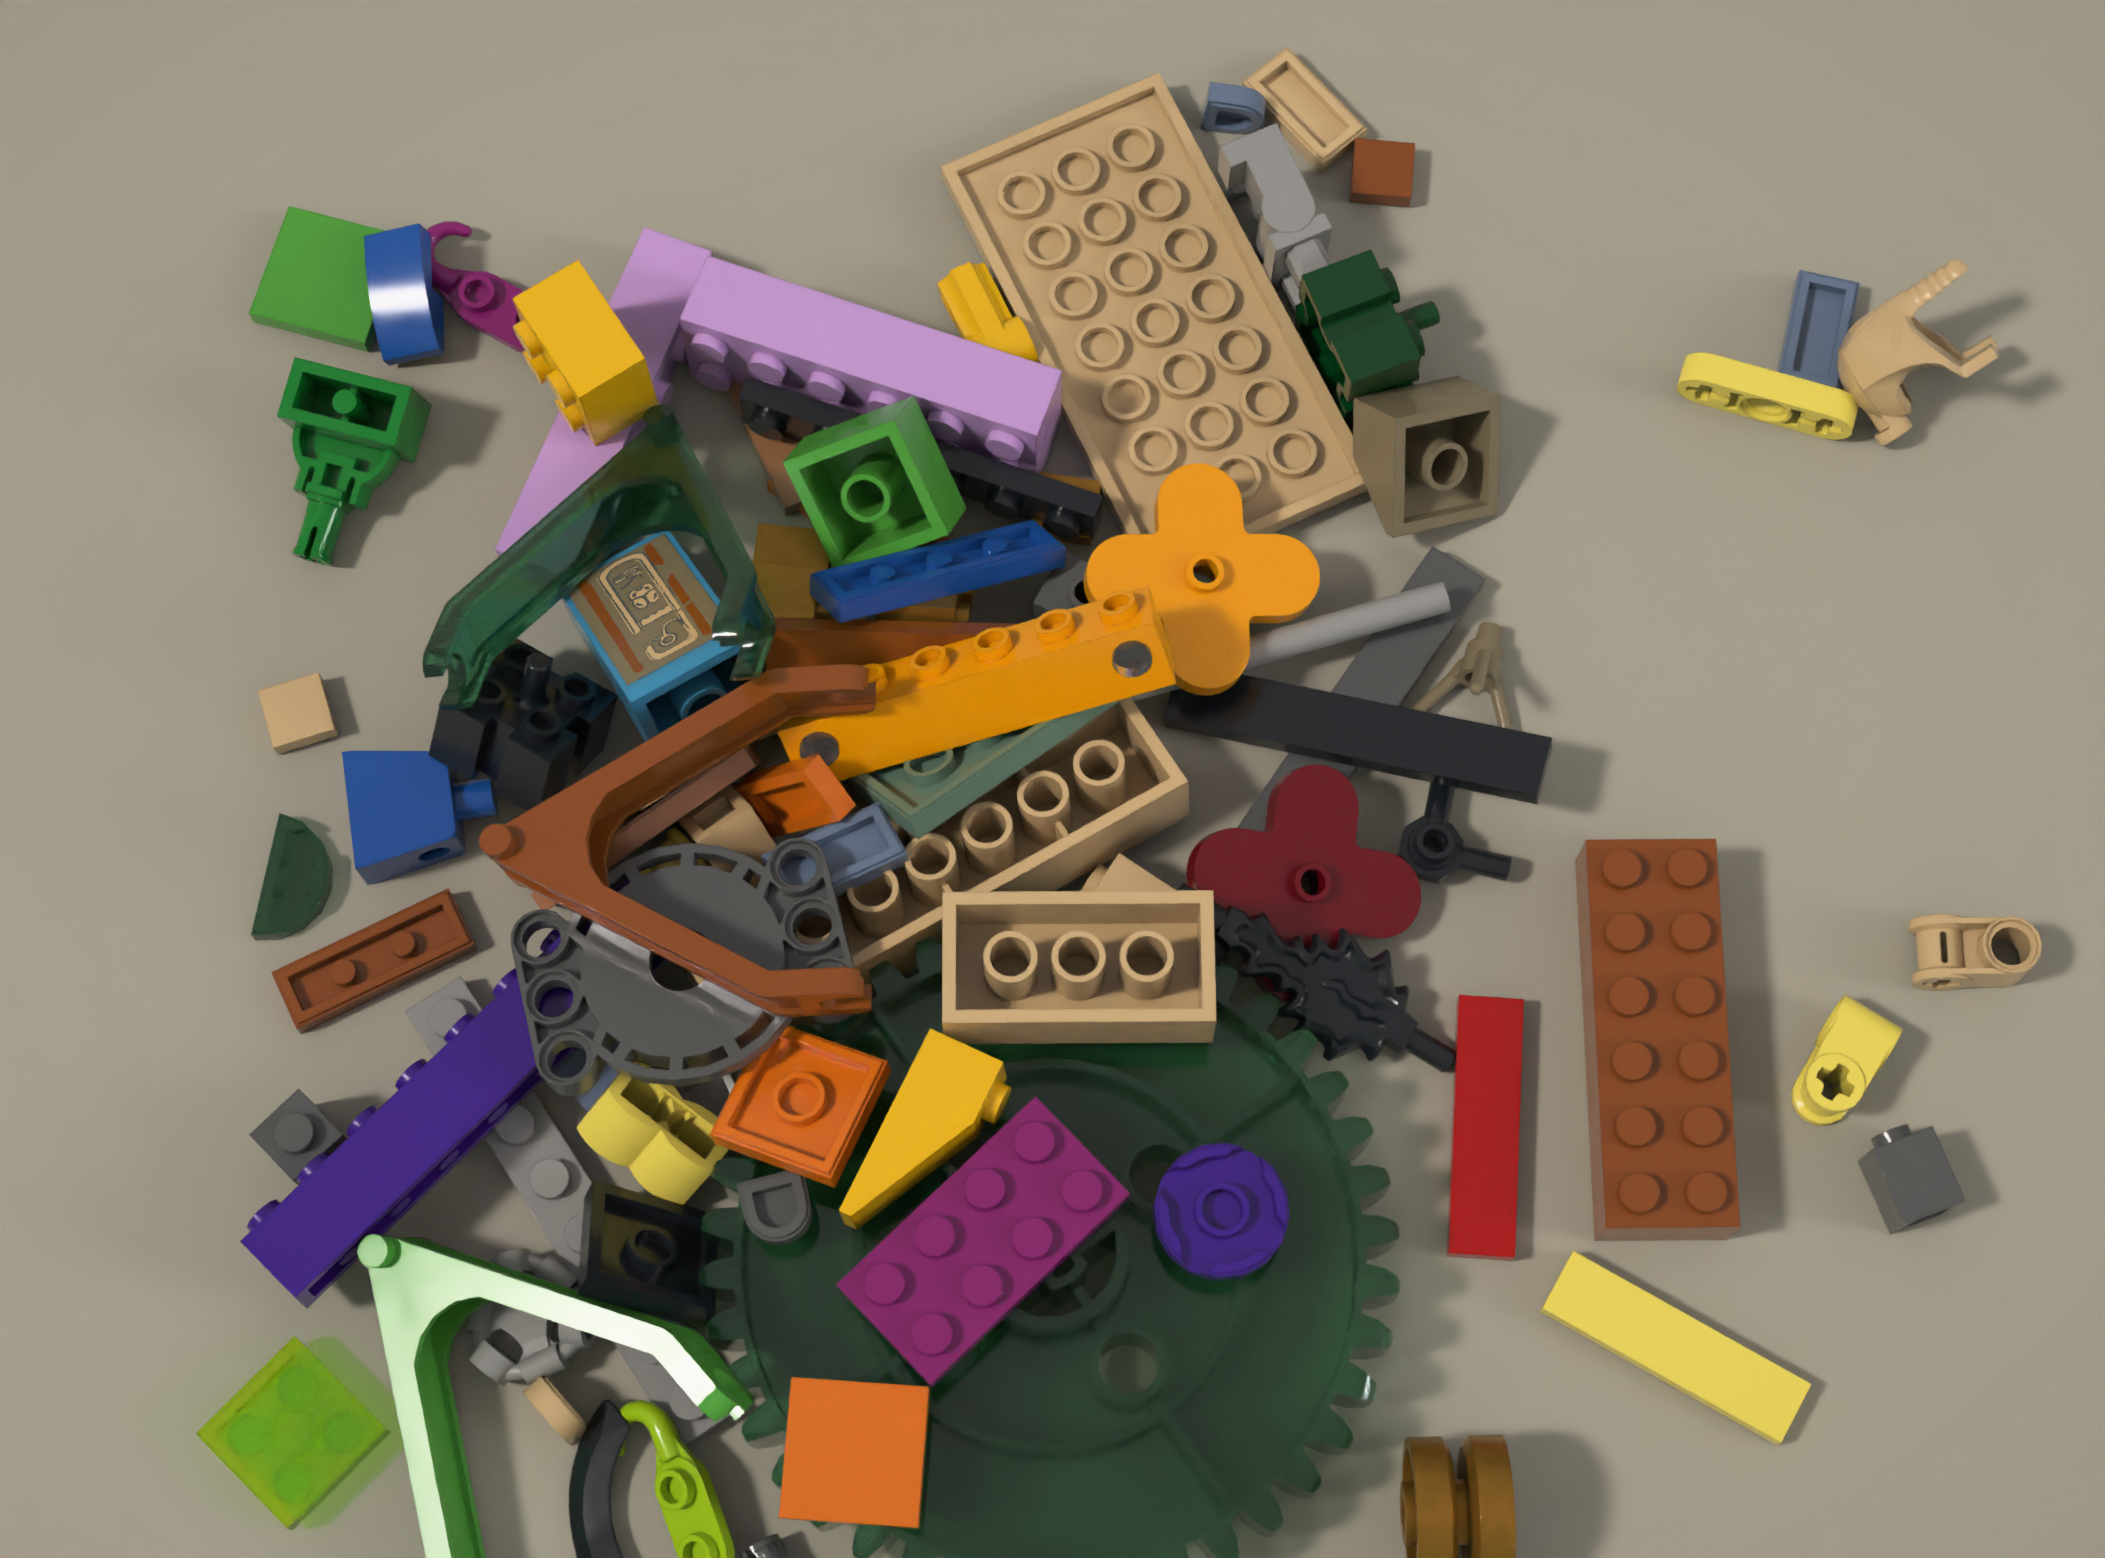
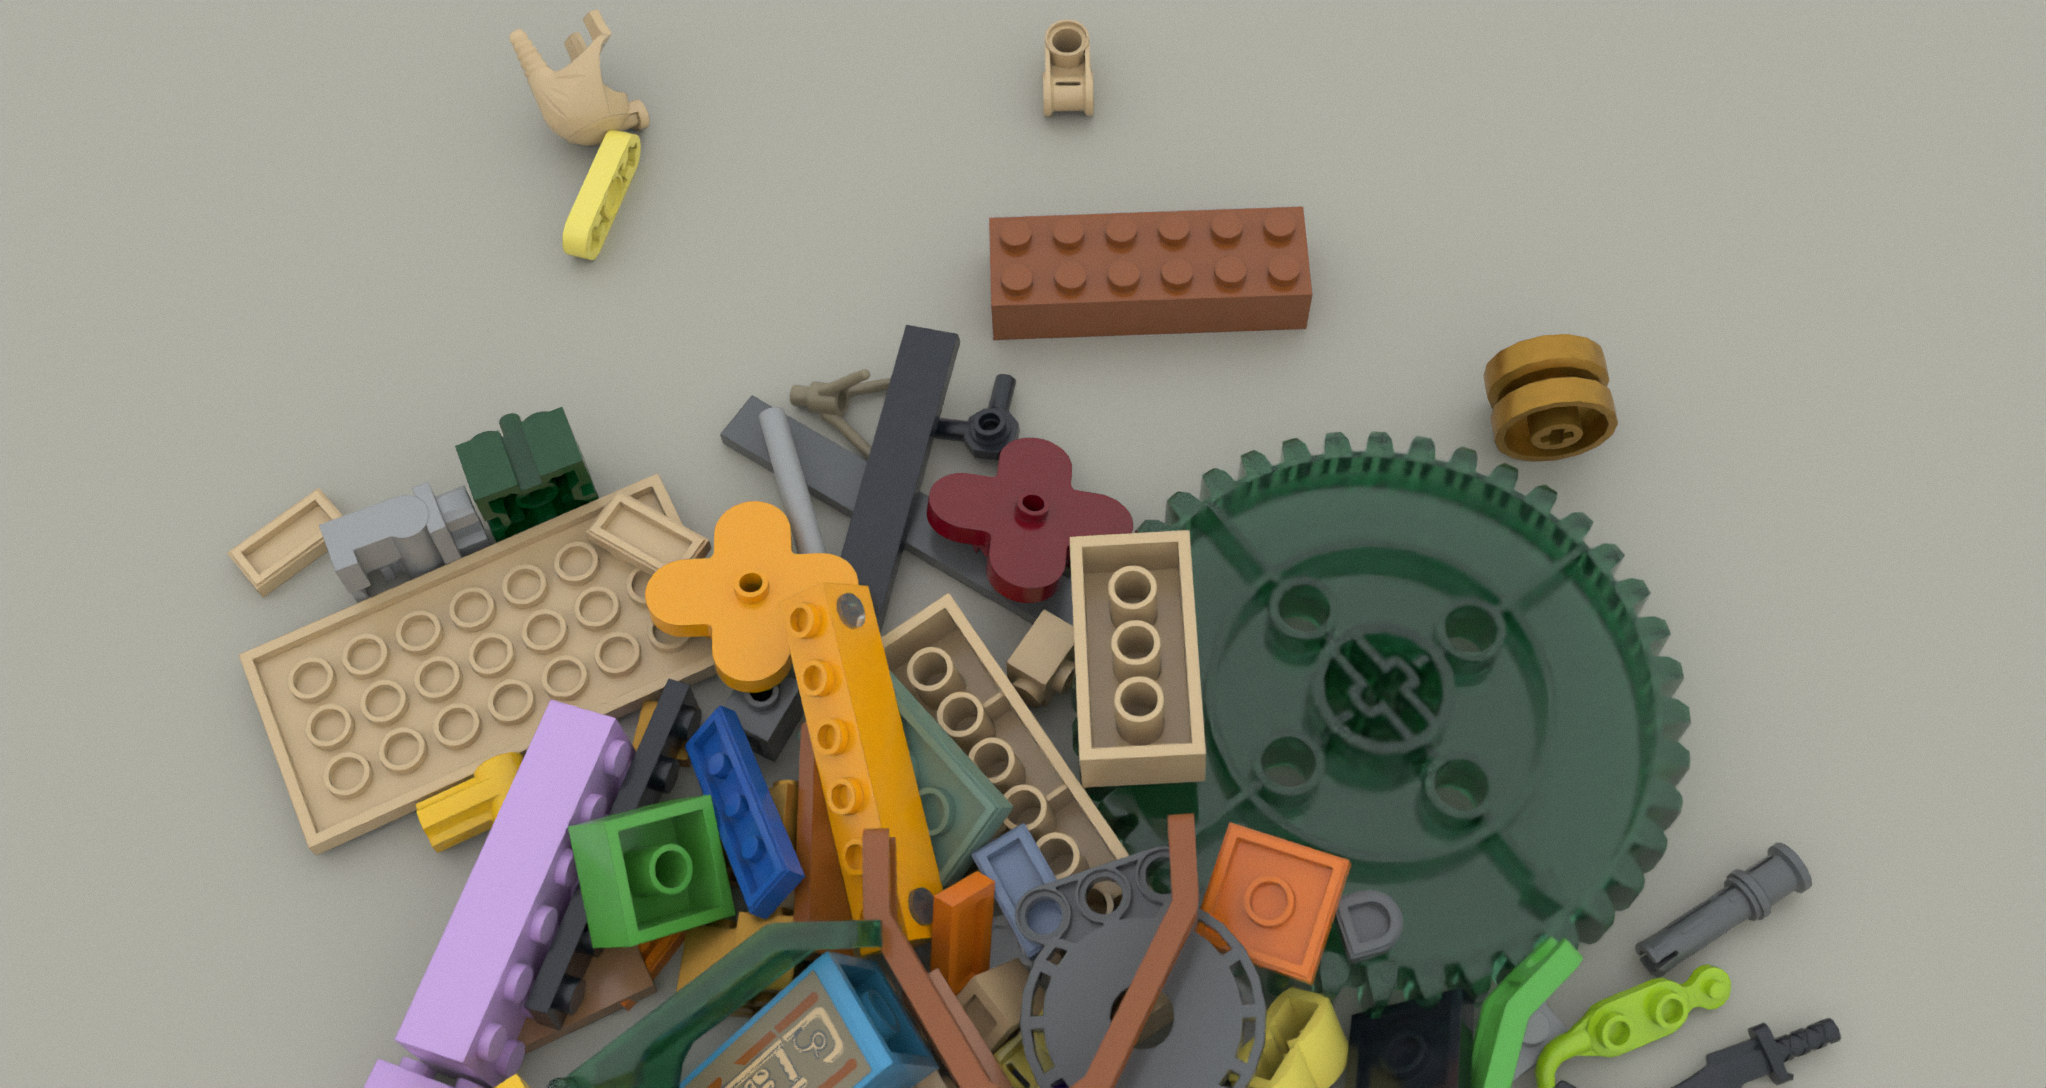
camera: 90 degrees left, 10 degrees down
(854, 1452) = (1584, 844): orange tile -> none
(930, 1120) = (1278, 781): yellow slope -> none
(983, 1241) = (1387, 737): magenta plate -> none
(1221, 1211) = (1337, 553): dark purple tile -> none
(1232, 109) = (284, 596): sand blue tile -> none
(1286, 469) = (644, 535): none -> tan tile
(1333, 990) = (1118, 493): black piece -> none
(1382, 172) = (361, 477): dark orange tile -> none
(1429, 453) = (637, 427): dark tan slope -> none
(1485, 1128) = (1223, 398): red tile -> none
(1675, 1348) = (1387, 273): light yellow tile -> none
(1816, 326) = (543, 165): sand blue tile -> none
(1848, 1056) = (1153, 150): light yellow piece -> none
(1910, 1177) = (1246, 114): dark grey brick -> none

